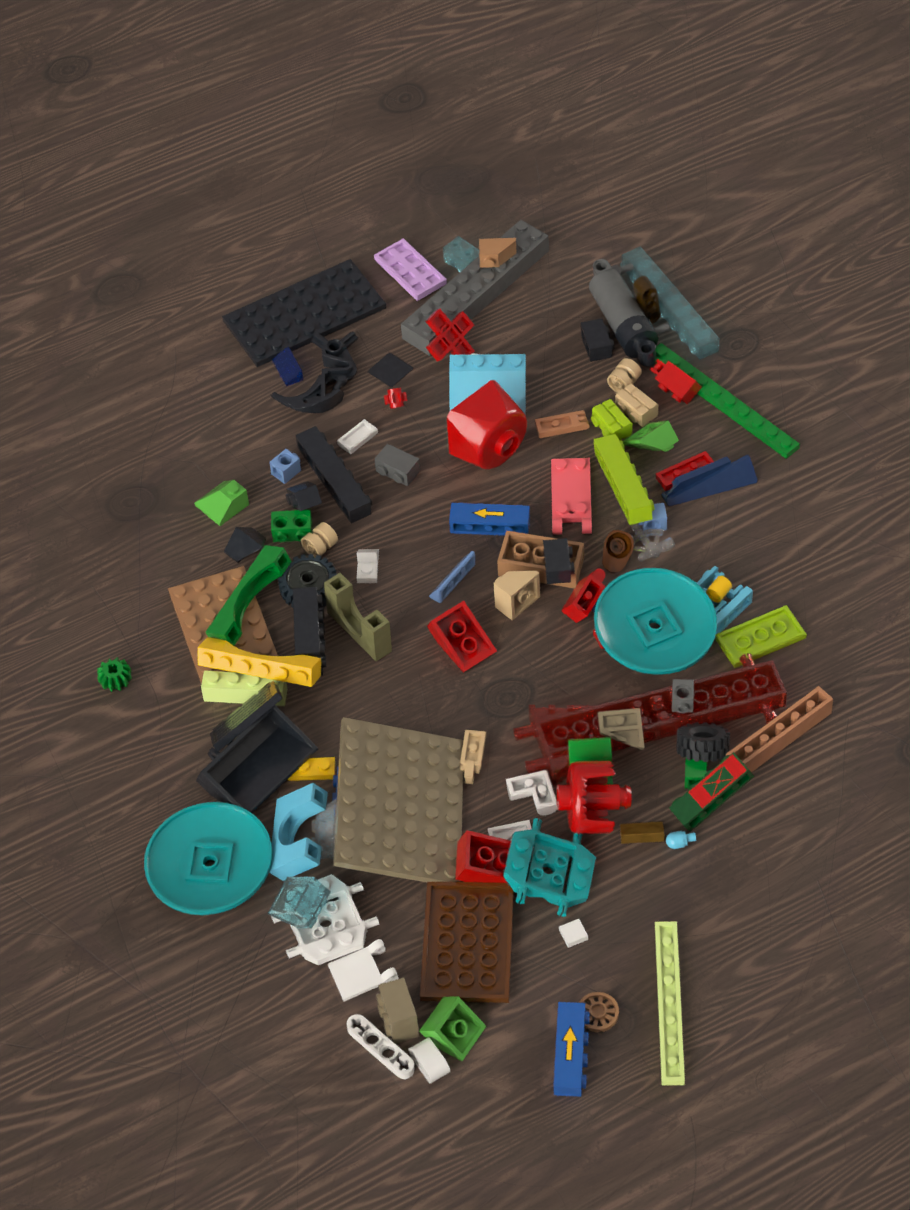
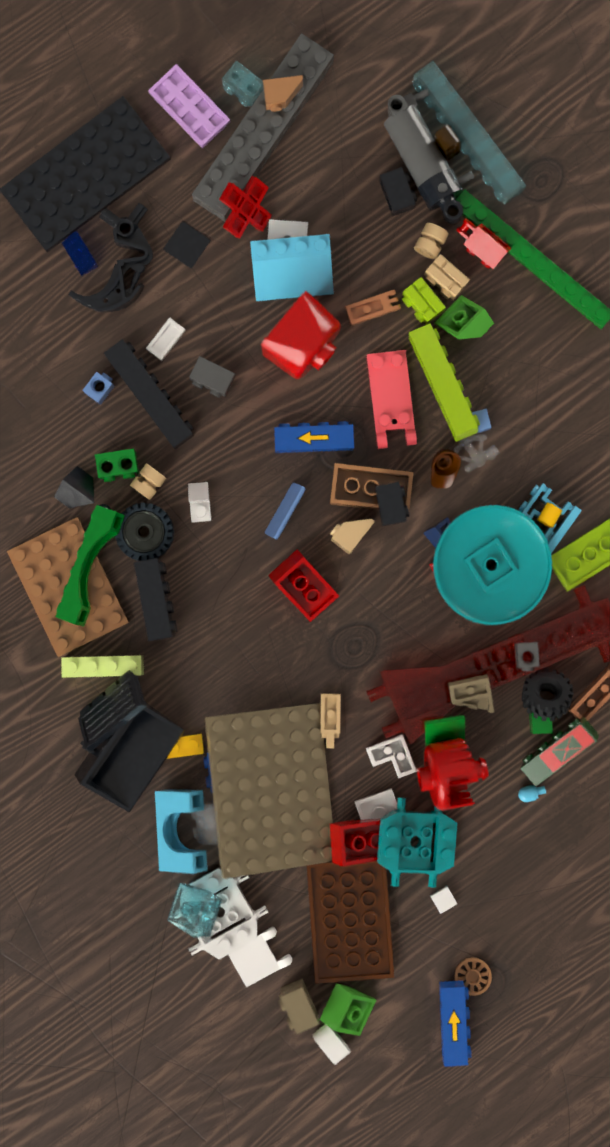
camera: 15 degrees left, 35 degrees up
(205, 833) = (79, 881): teal dish -> none
(223, 501) = (41, 437): bright green slope -> none
(292, 669) = (152, 656): yellow arch -> none
(303, 496) = (124, 432): black brick -> none
(369, 632) = (201, 582): olive arch -> none
(382, 1044) = (284, 1033): white beam -> none
(395, 398) = (198, 289): red gear -> none
(584, 596) = (419, 528): red brick -> none
(642, 832) = (496, 787): pearl gold slope -> none
(667, 475) = (503, 358): red plate -> none
(669, 1004) = (535, 964): yellowish green plate -> none
(710, 480) = (531, 367): dark blue wedge -> none

